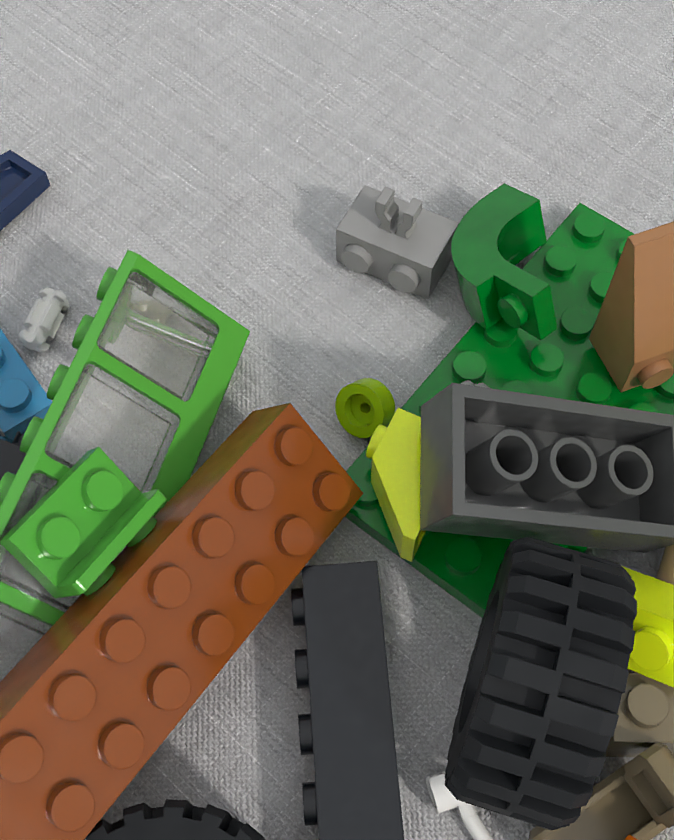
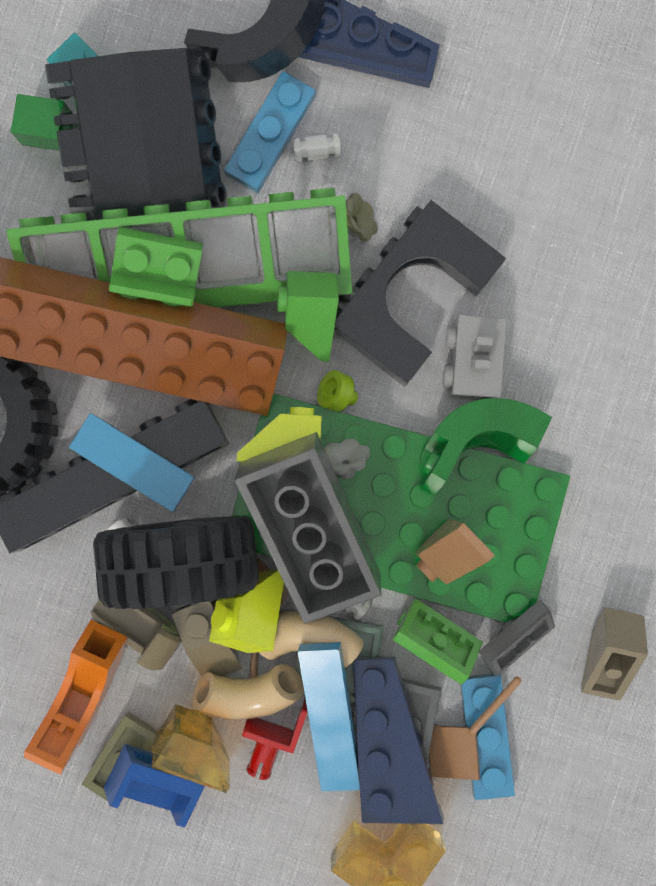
camera: 70 degrees right, 25 degrees up
(247, 371) = (310, 309): none -> bright green slope
(287, 336) = (430, 240): none -> black arch
(350, 704) = (132, 462): none -> dark azure tile

